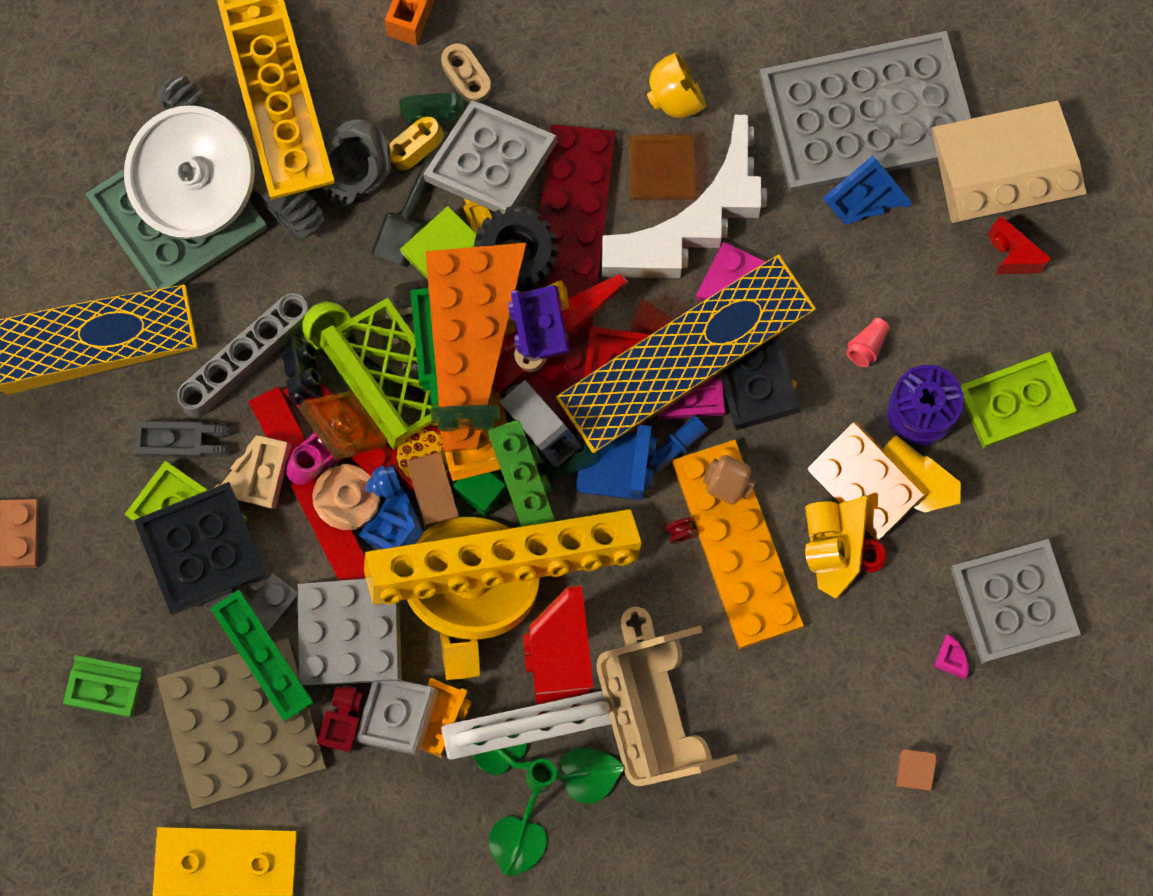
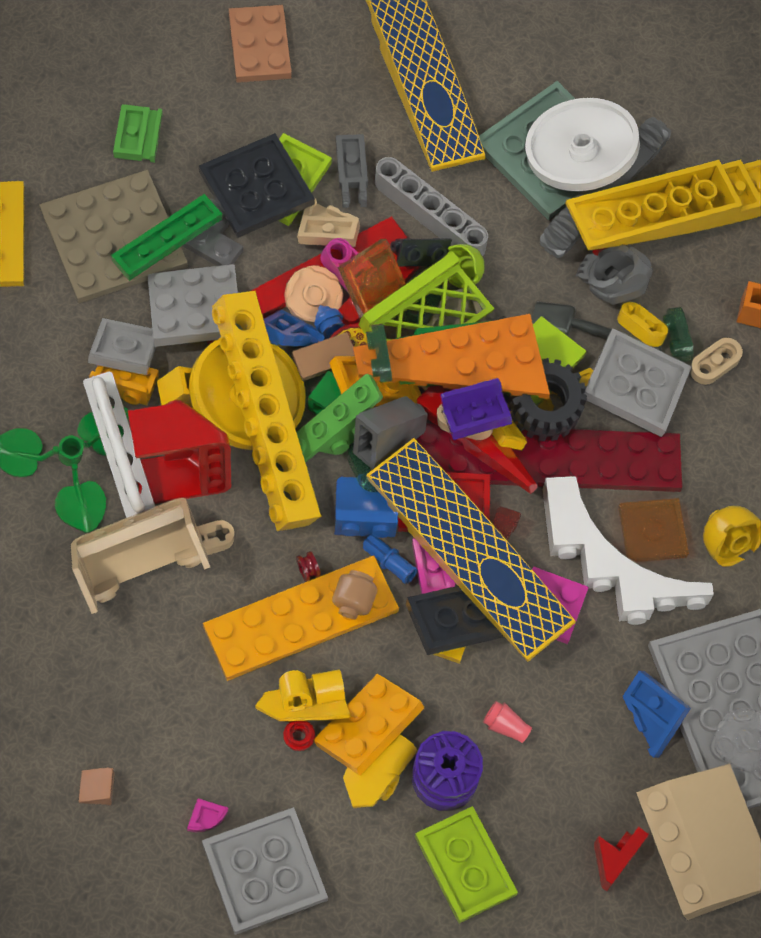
camera: 80 degrees right, 10 degrees down
(340, 728) = (113, 306): dark red plate -> none

